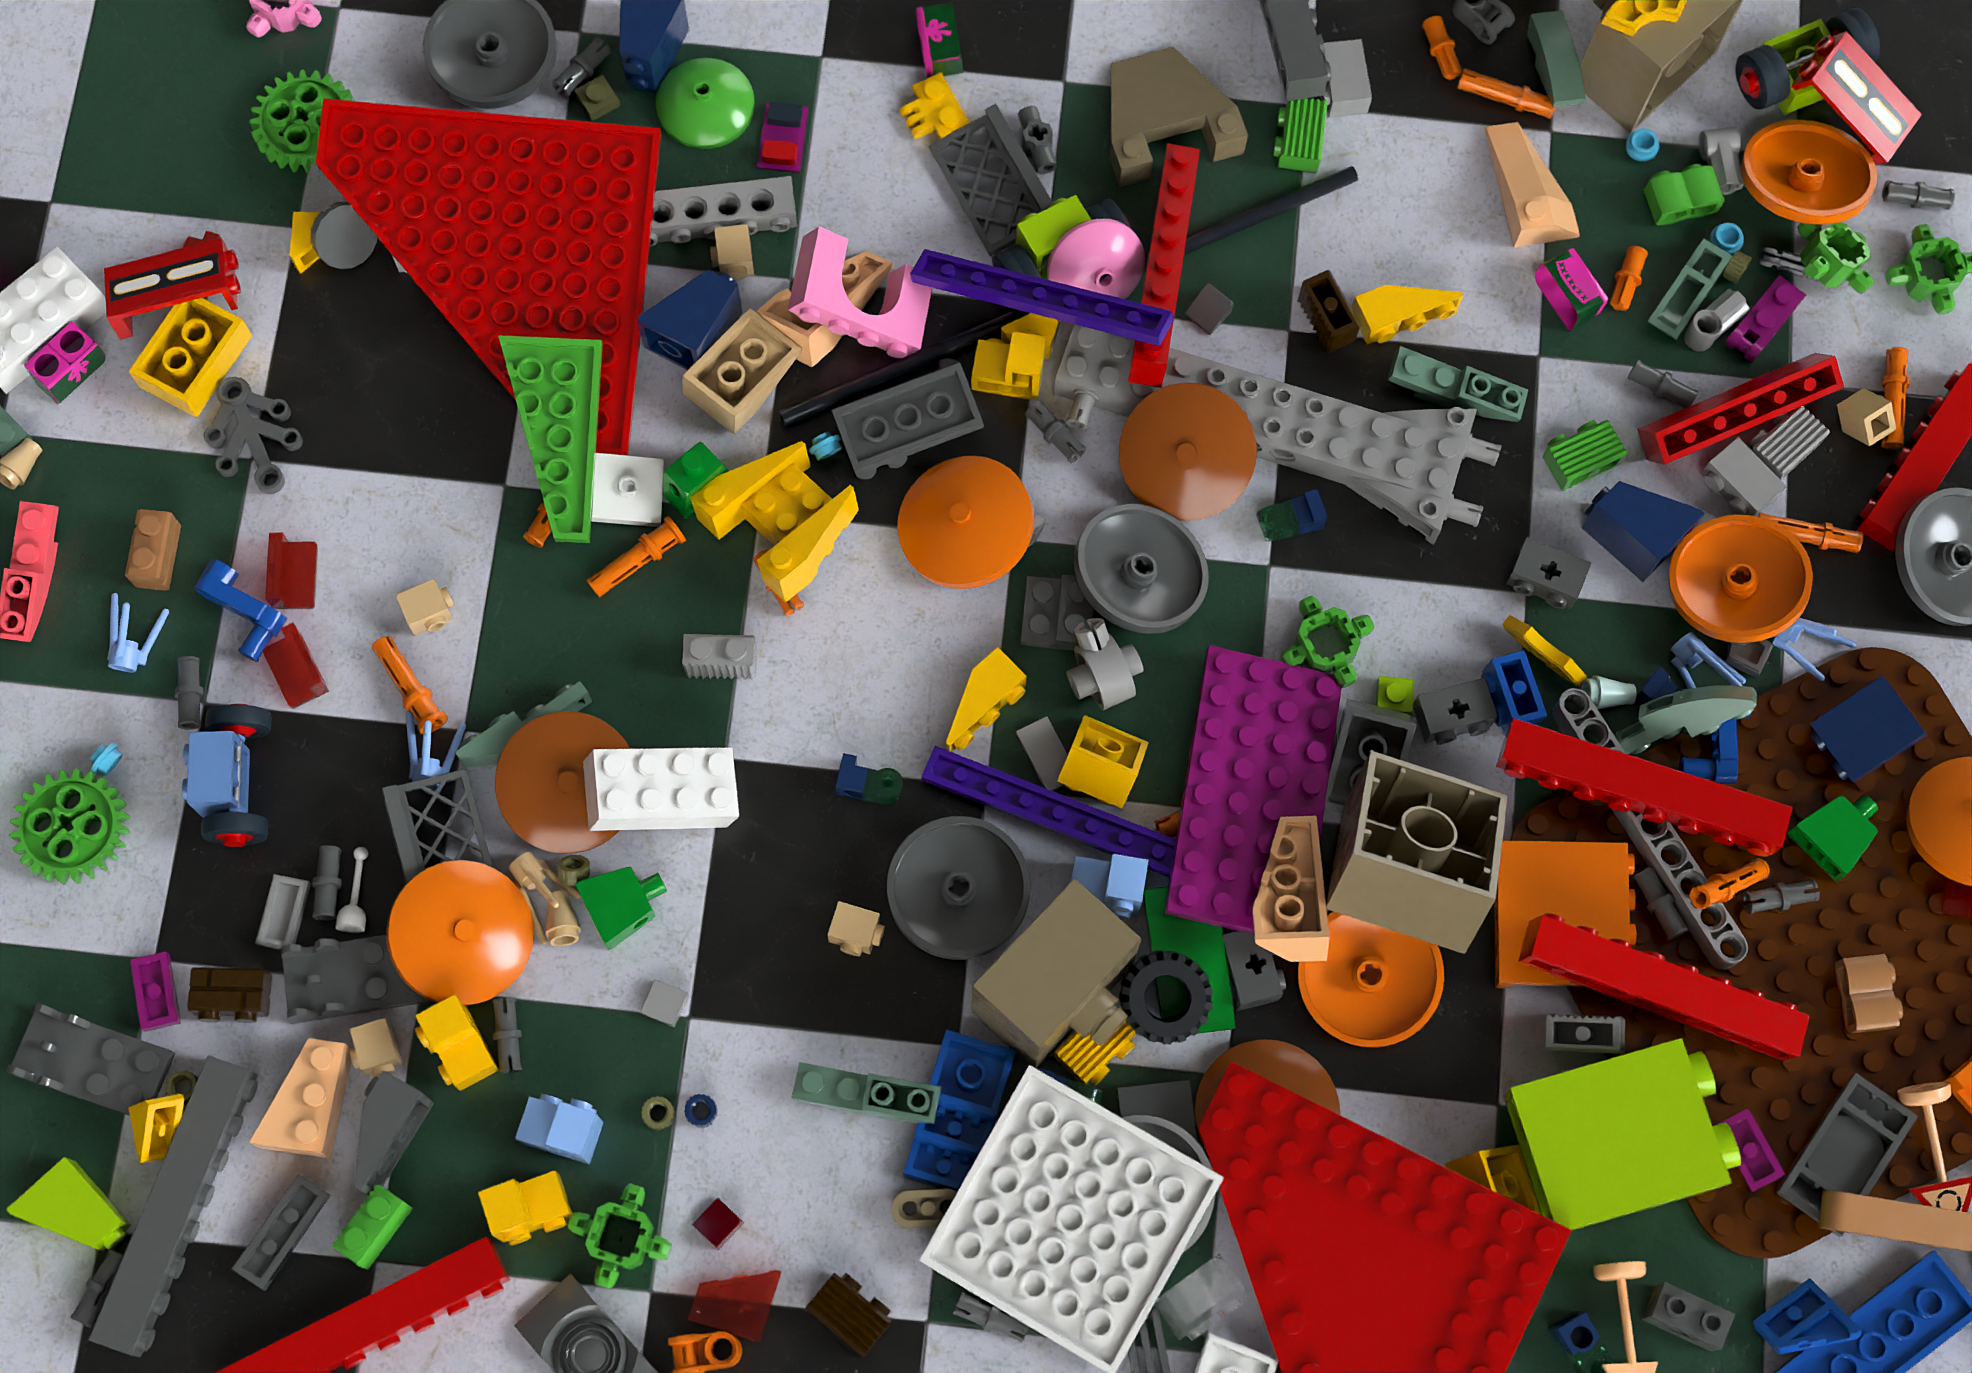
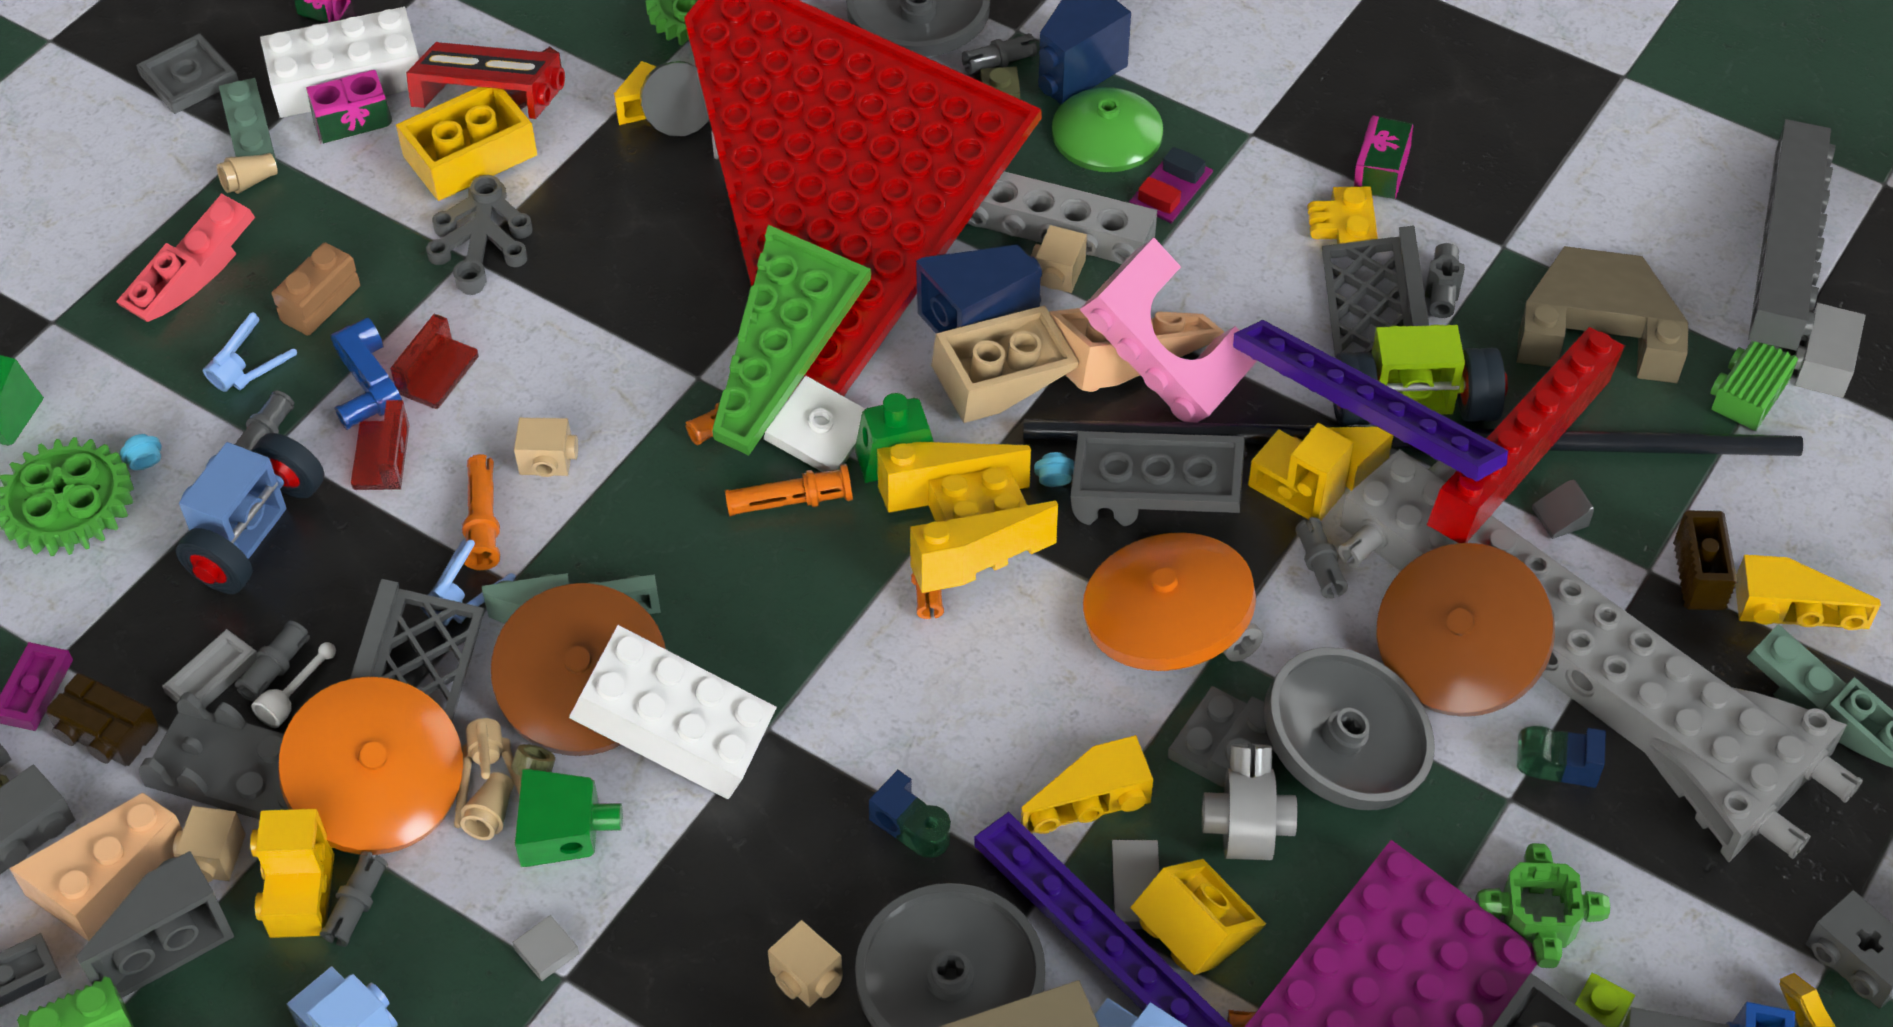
camera: 30 degrees right, 20 degrees down
(719, 656) = (820, 619): light grey brick -> none
(1096, 250) = (1454, 381): bright pink dish -> none

